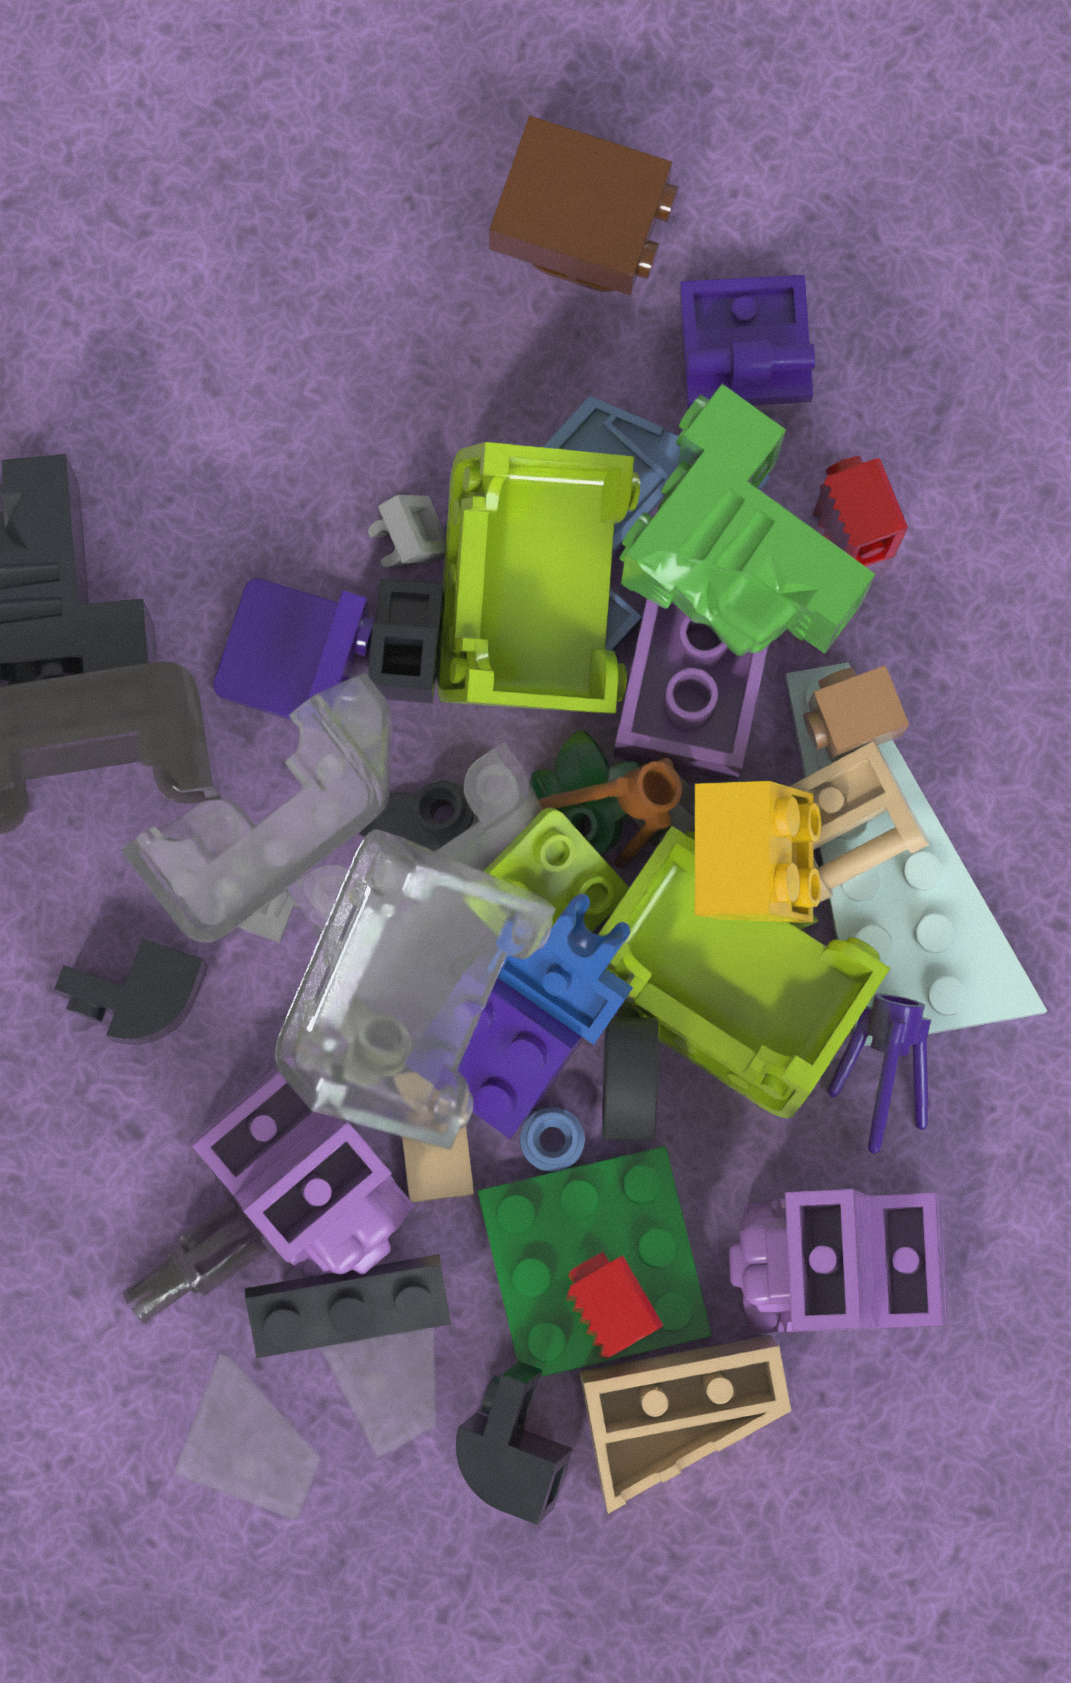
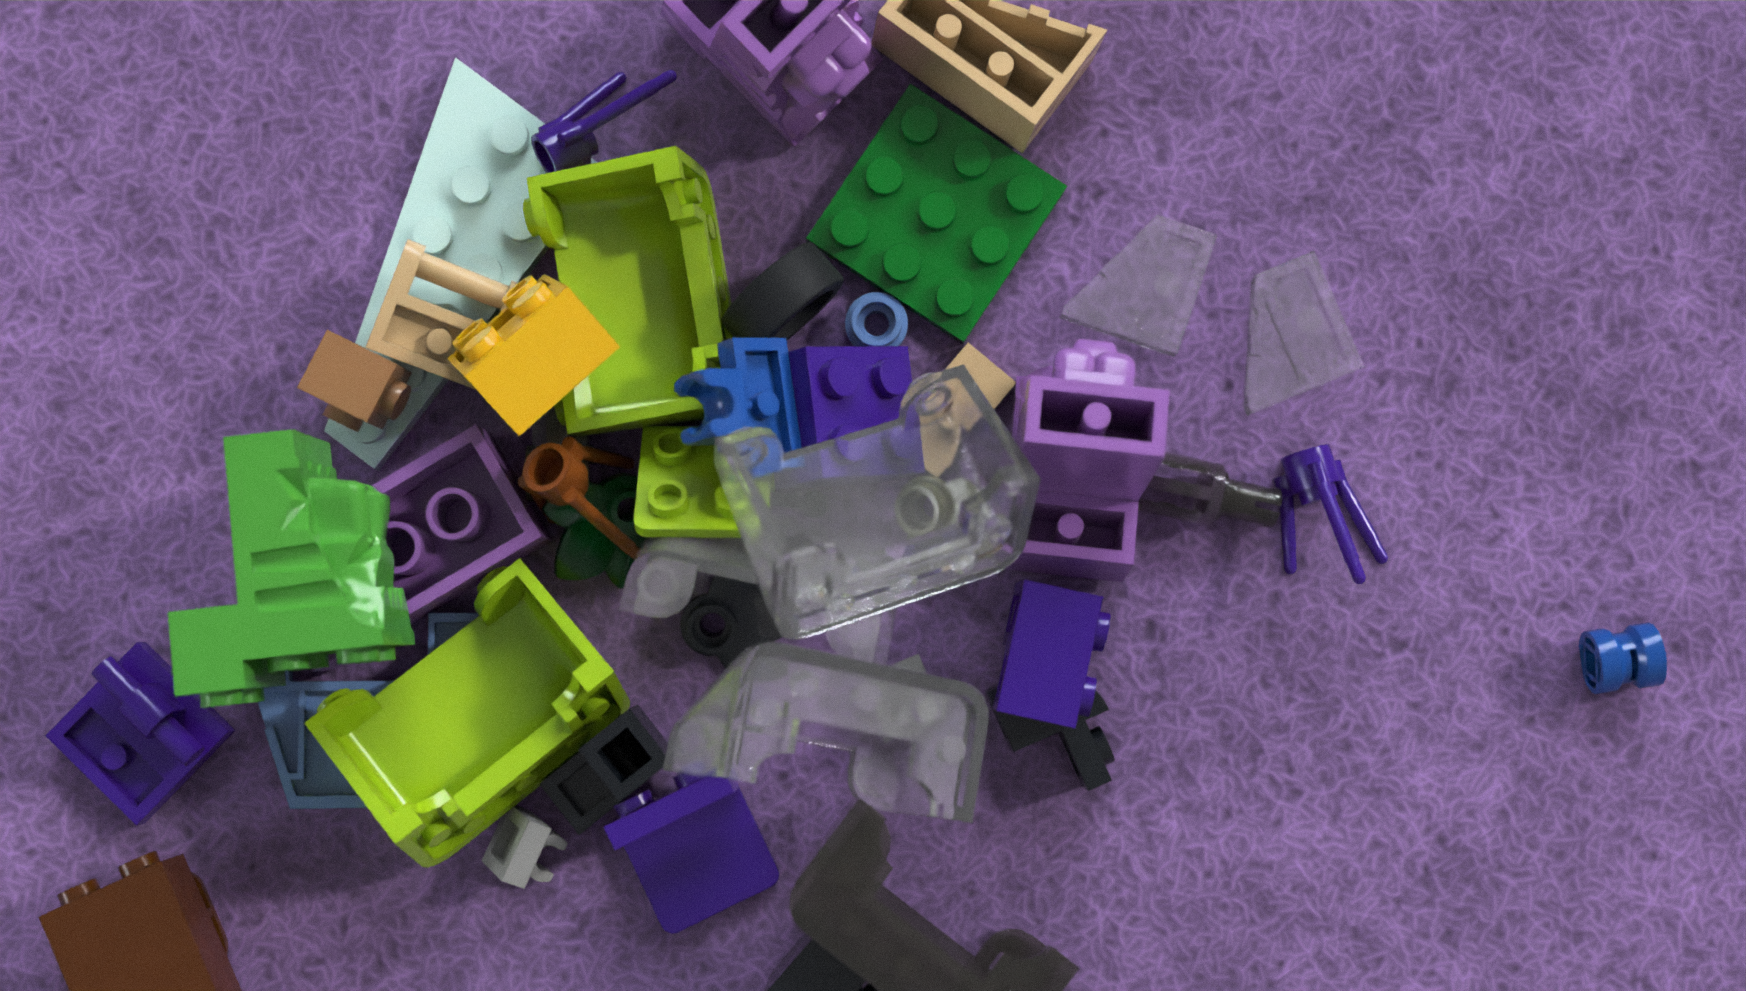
camera: 130 degrees left, 5 degrees up
(127, 1355) = (1319, 478): none -> dark purple plant
(188, 1025) = (1050, 653): none -> dark purple brick
(347, 1306) = (1095, 312): black plate -> none
(501, 1459) = (1134, 140): black brick -> none
(611, 1304) = (963, 152): red brick -> none
(860, 510) = (189, 521): red brick -> none

